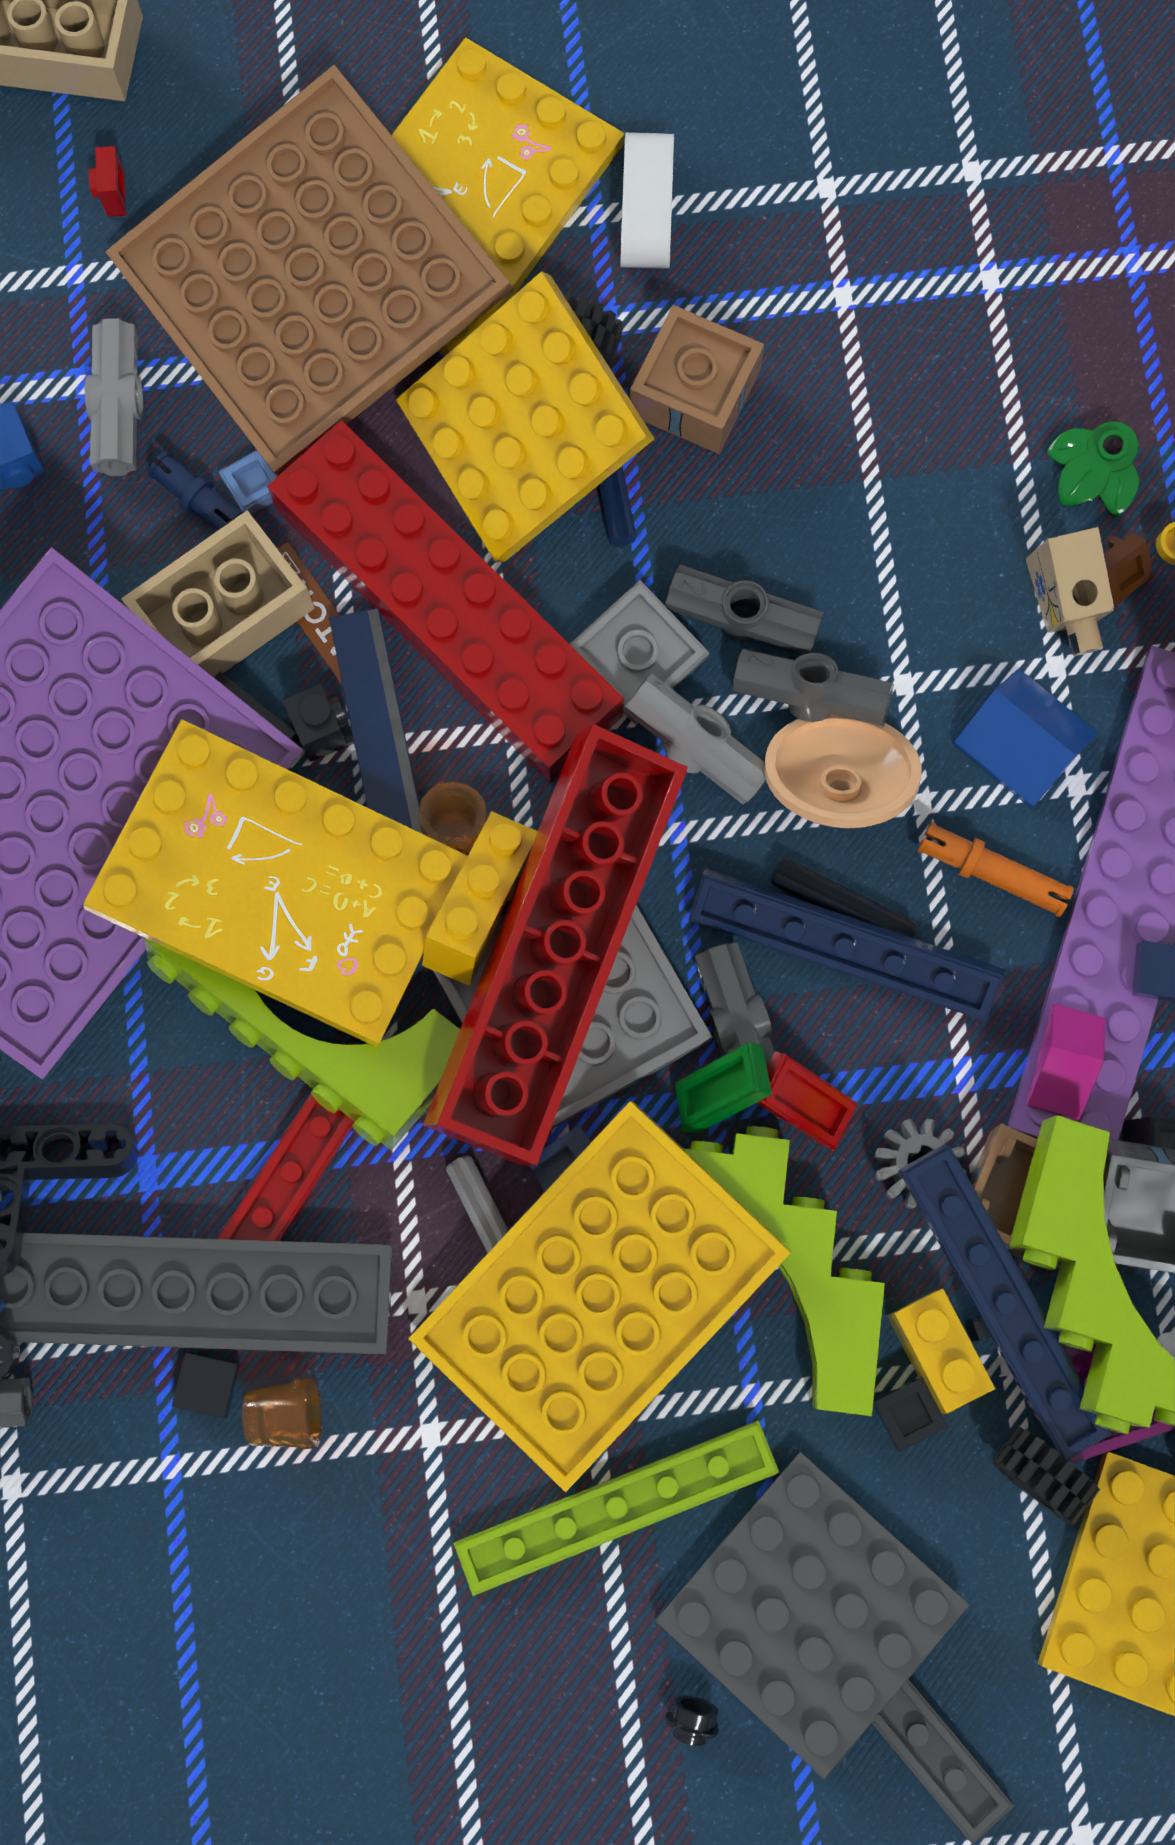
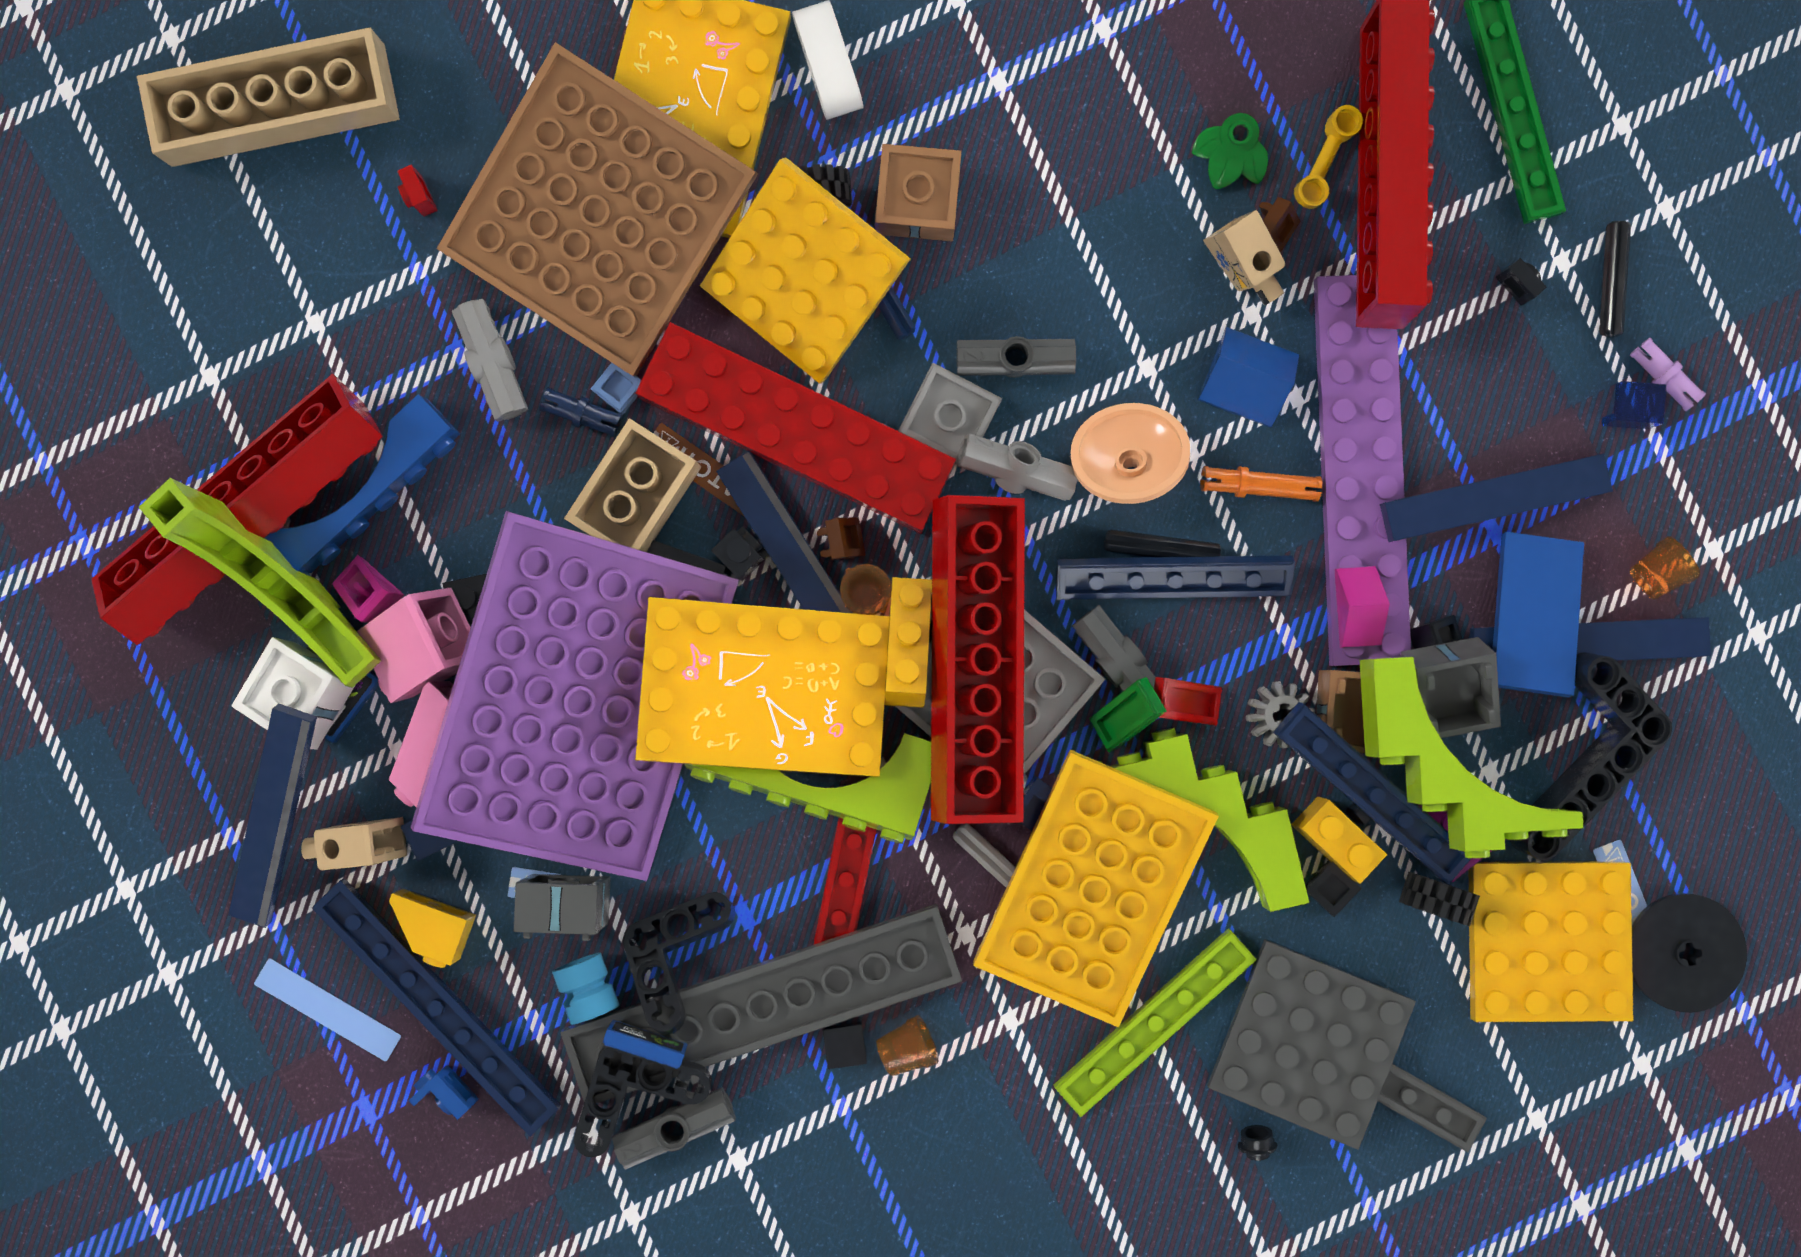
camera: 25 degrees left, 10 degrees up
(451, 750) = (844, 538): none -> reddish brown tile
(813, 687) = (1086, 398): dark grey piece -> none

